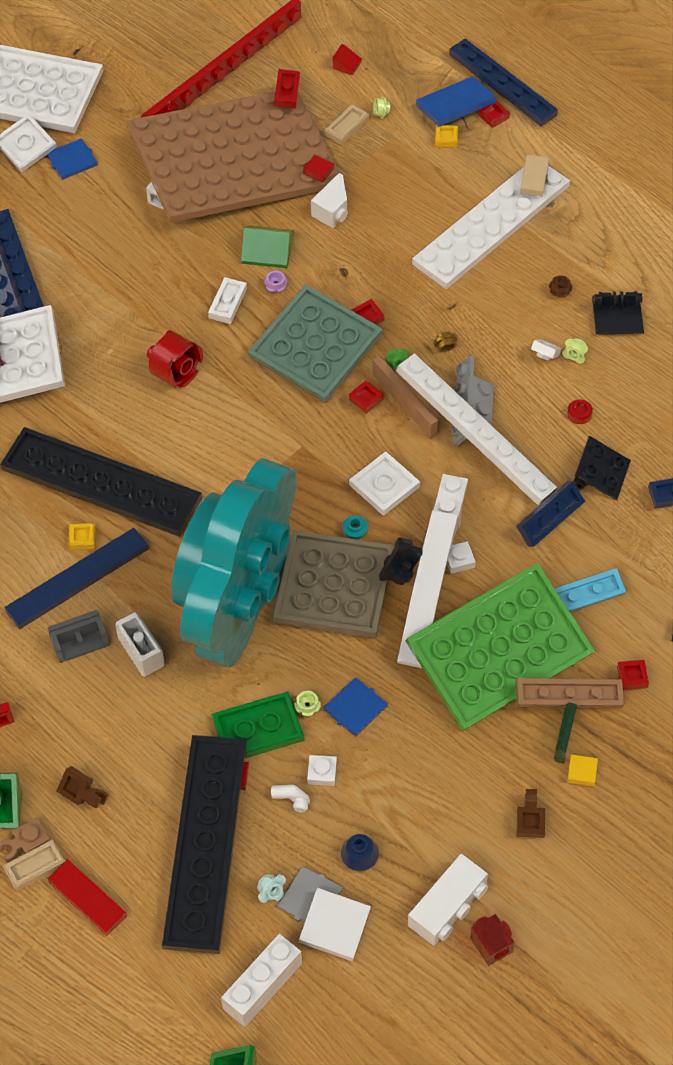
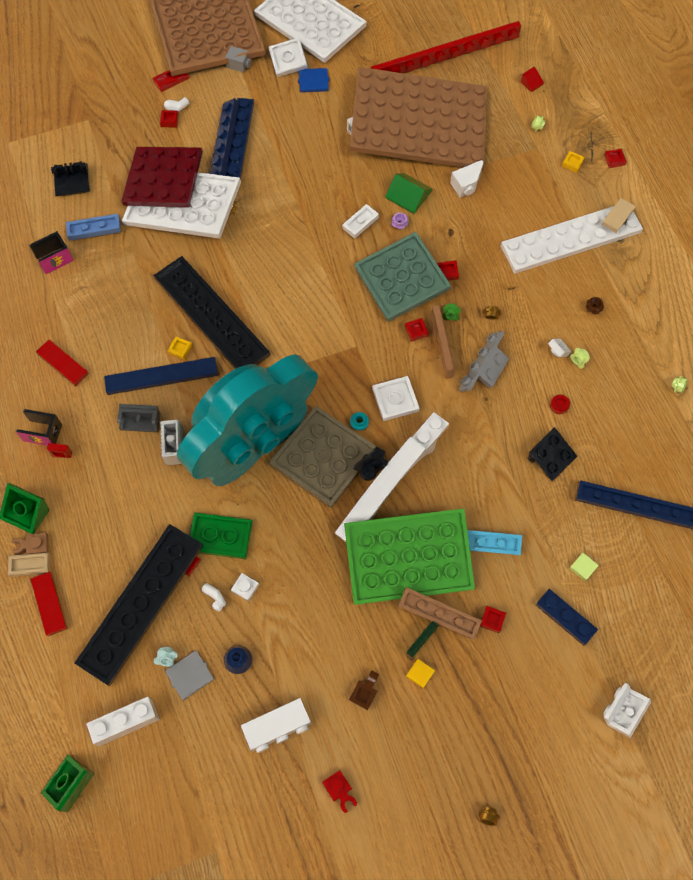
camera: 25 degrees right, 10 degrees up
(77, 788) = (81, 525): reddish brown plate -> none
(174, 359) = (301, 249): red brick -> none
(287, 88) = (478, 84): red plate -> none
(307, 697) = (260, 530): yellowish green plate -> none
(318, 168) = (469, 151): red tile -> none
(334, 924) = (193, 704): white tile -> none
(346, 124) = (508, 126): tan tile -> none
(355, 706) = (292, 551): blue piece -> none
(455, 101) = (592, 138): blue tile -> none
(460, 558) = (419, 475): white plate -> none
(476, 429) = (477, 388): white plate -> none
(492, 938) = (291, 768): clear red brick -> none
(503, 82) = (633, 137): dark blue plate -> none
(550, 513) = (498, 472): dark blue plate -> none
(558, 935) = (338, 787): none -> red plate
(618, 313) = (625, 343): black hinge -> none

